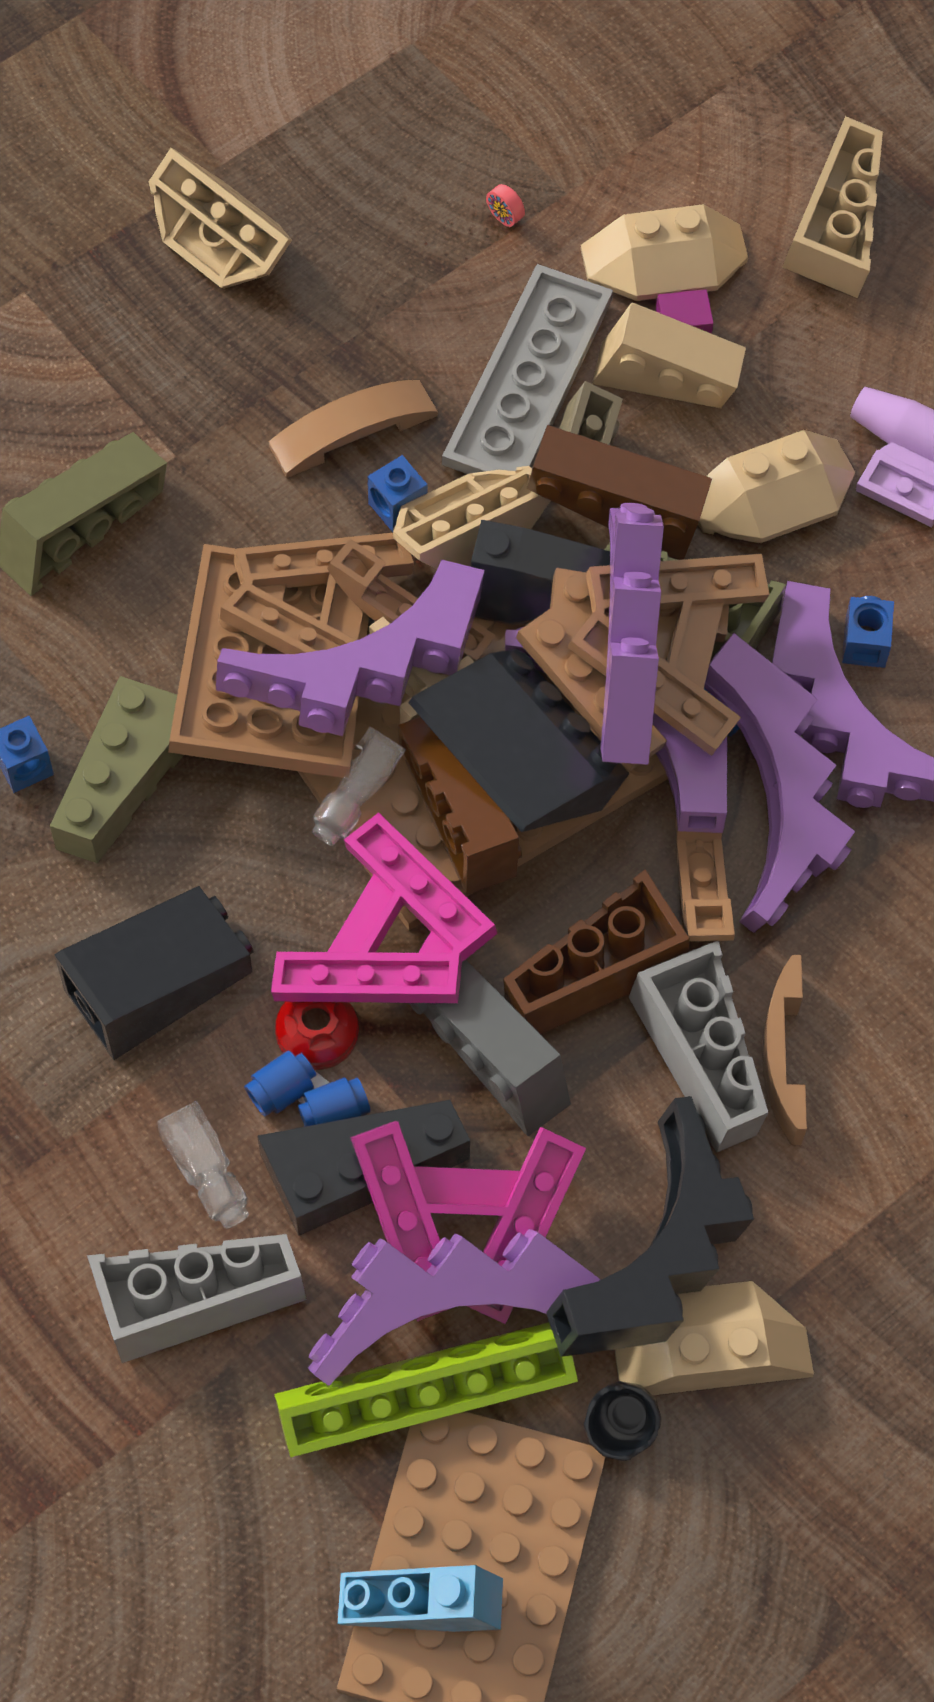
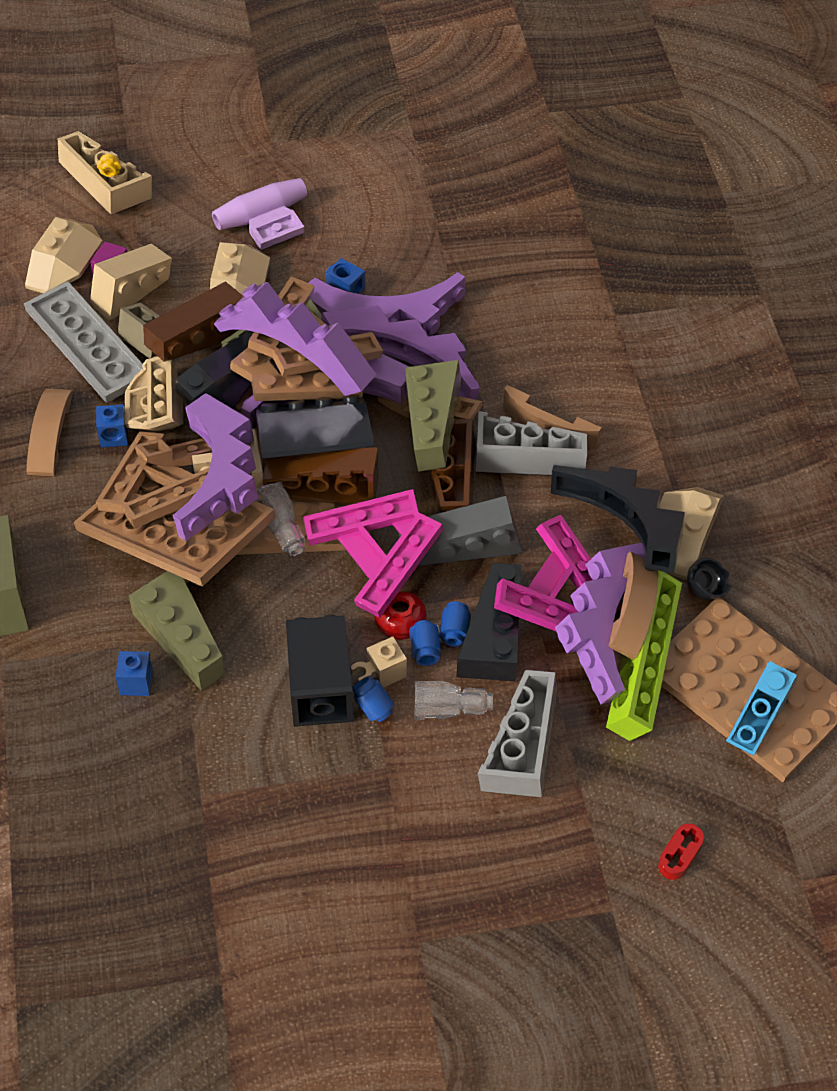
camera: 60 degrees left, 10 degrees down
(136, 1581) = (686, 854): none -> red beam
(144, 1063) = (373, 699): none -> blue brick
(210, 1048) = (384, 663): none -> tan brick
(472, 1331) = (637, 607): none -> medium nougat slope
(660, 870) = (432, 407): none -> olive wedge
(833, 208) = (109, 165): none -> yellow plate

